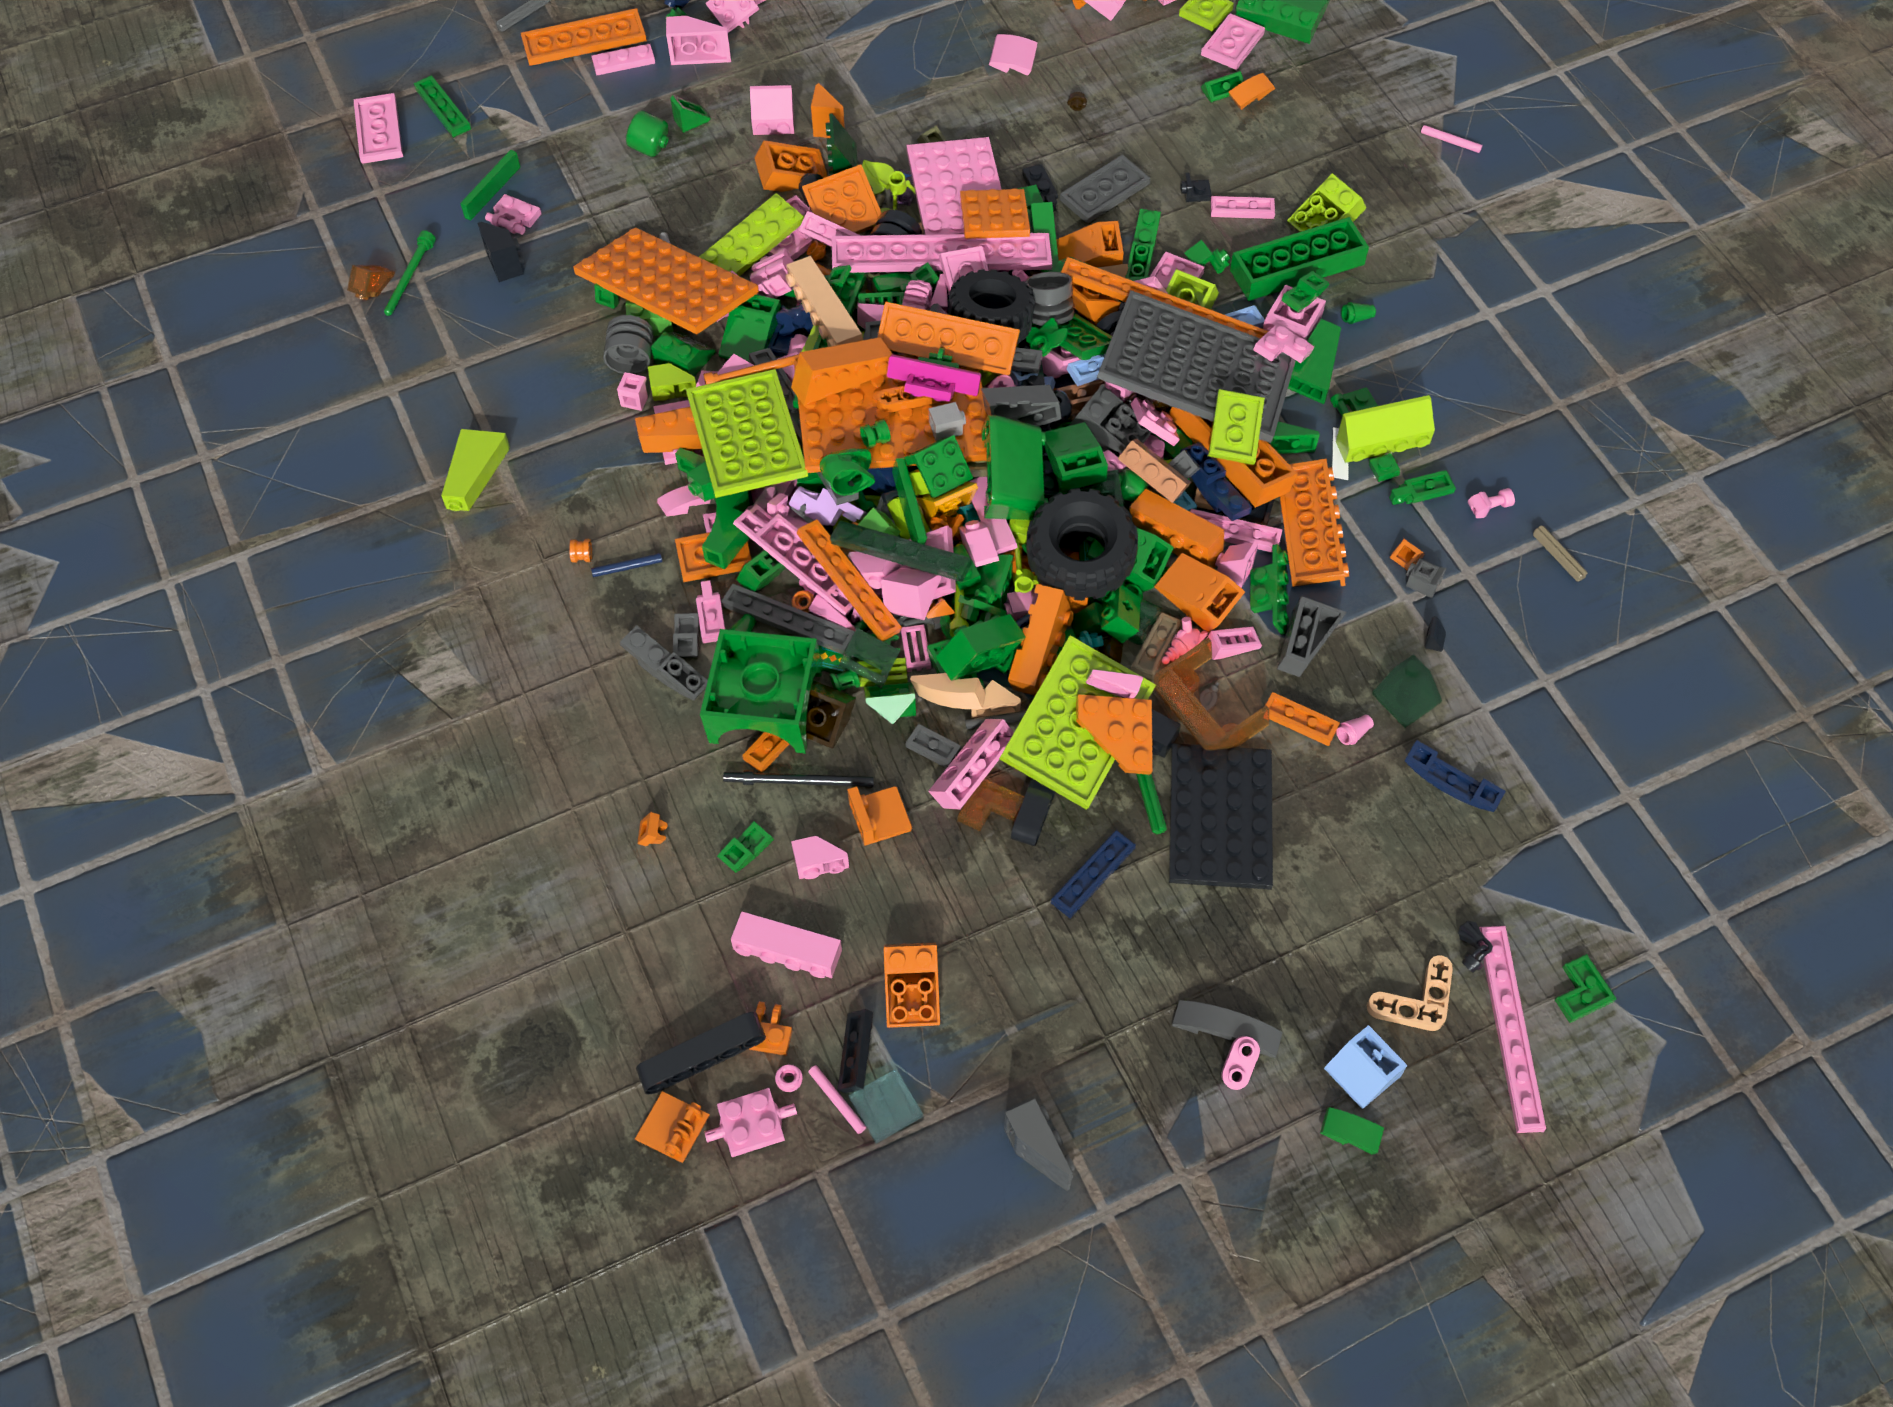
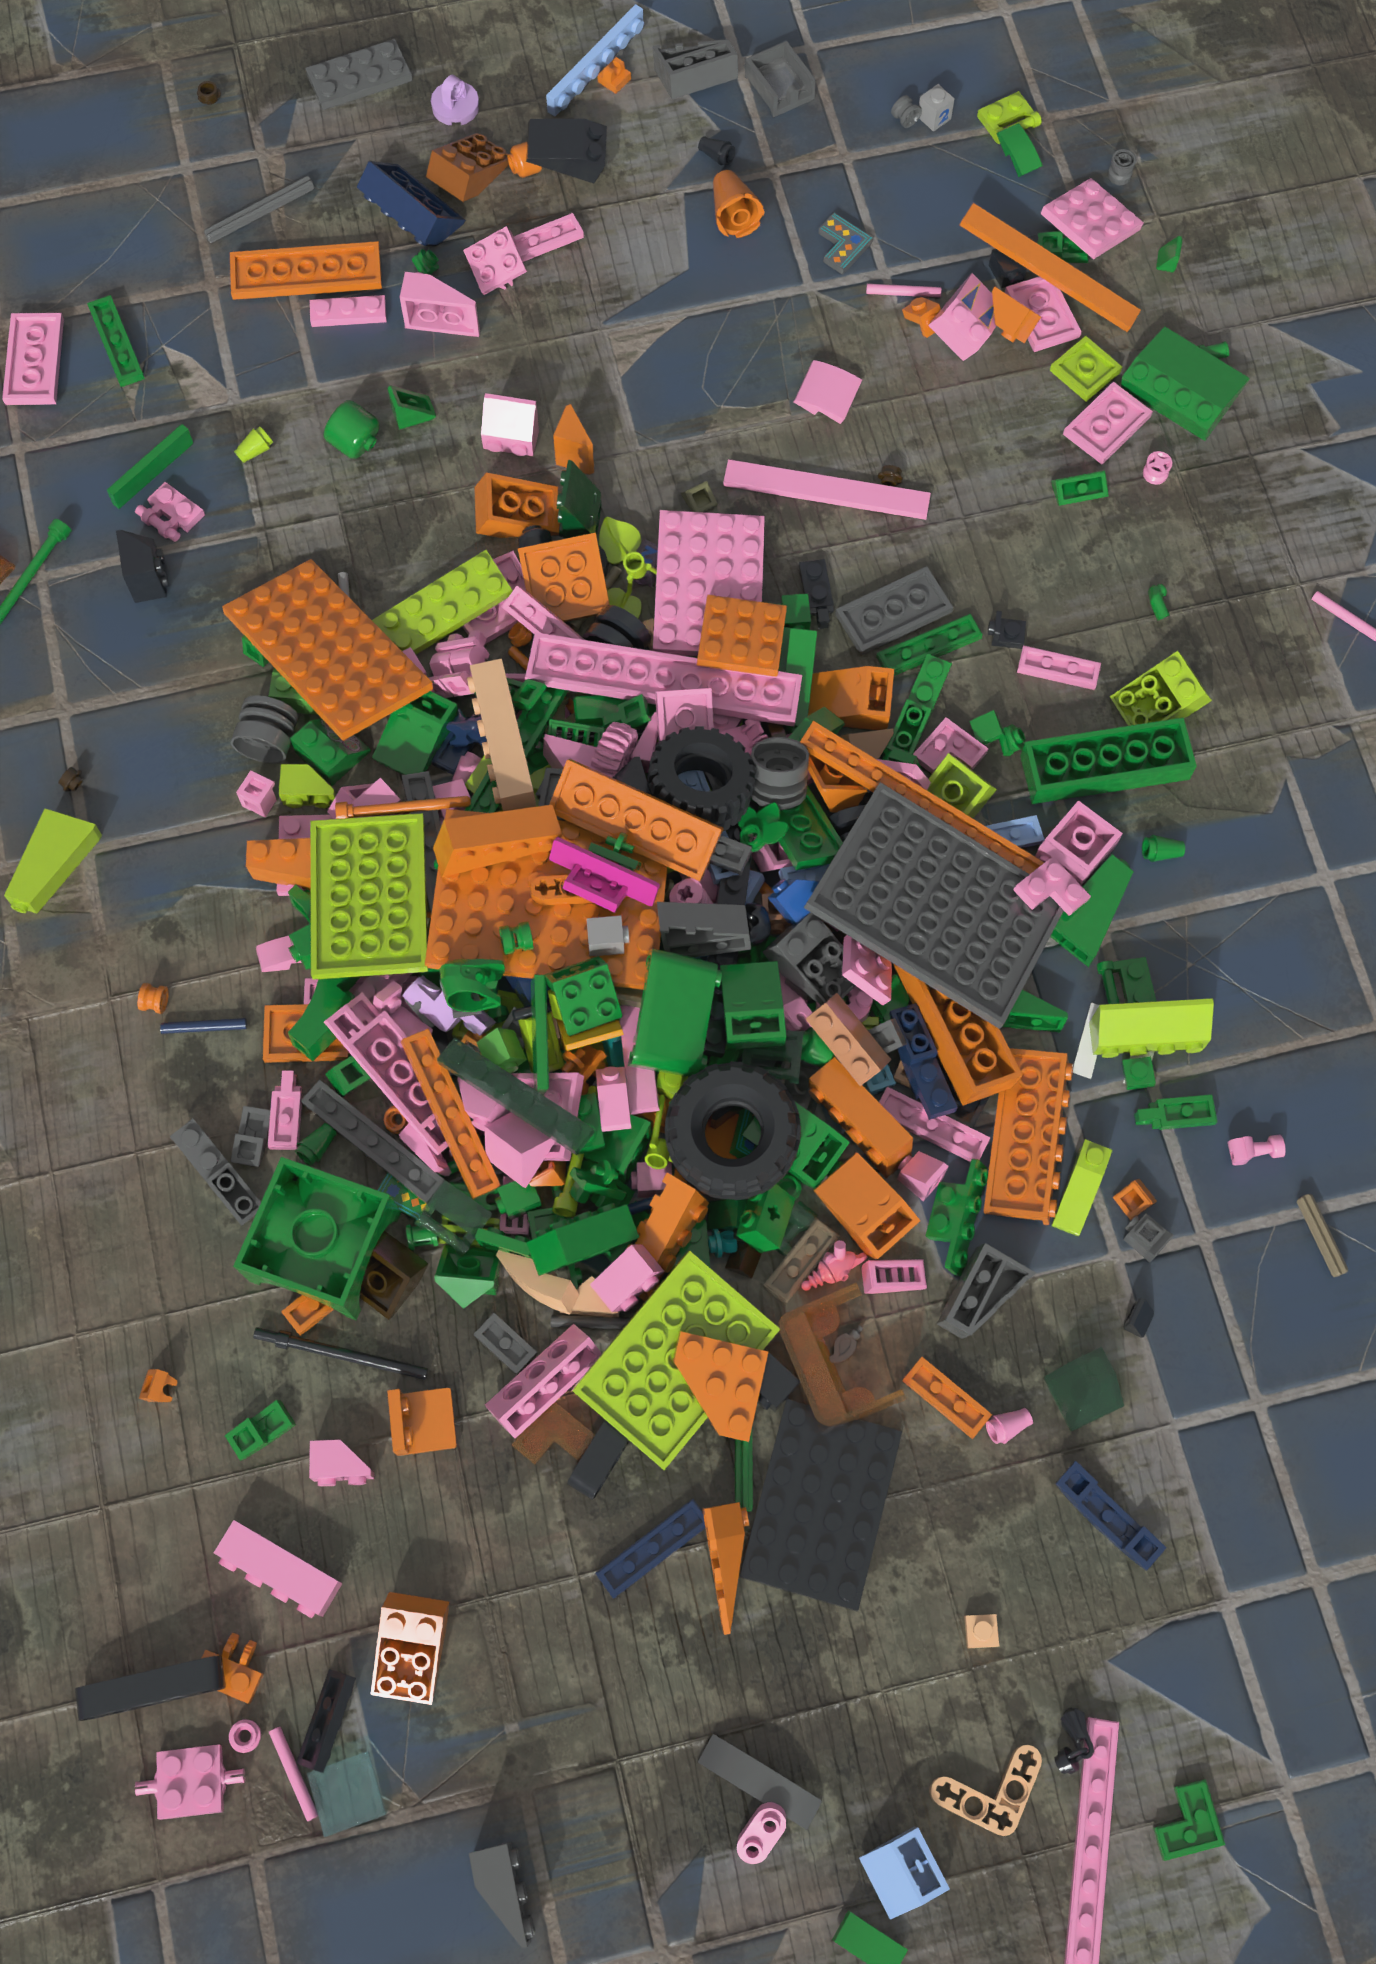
camera: 10 degrees right, 10 degrees up
(476, 409) = (71, 779): none -> dark brown plate
(570, 158) = (253, 445): none -> lime cone
(672, 1126) = (101, 1768): orange hinge -> none
(905, 668) = (495, 1240): none -> green hinge
(917, 636) = (517, 1200): none -> green brick
(1023, 670) = (627, 1278): none -> bright pink brick
(1030, 118) = (827, 489): none -> bright pink tile
(1084, 380) = (790, 898): none -> blue slope
(1115, 683) = (736, 1328): bright pink slope -> none
(1151, 200) = (934, 642): none -> green tile
(1151, 849) = (725, 1541): none -> orange wedge
(1236, 426) = (959, 1005): lime tile -> none
(1251, 89) = (1112, 500): orange slope -> none
(1279, 64) = (1159, 461): none -> bright pink wheel
(1303, 148) = (1157, 603): none -> green arm
(1305, 292) = (1099, 818): green slope -> none
(1364, 551) = (1081, 1187): none -> lime slope
(1376, 882) = (981, 1631): none -> light nougat plate

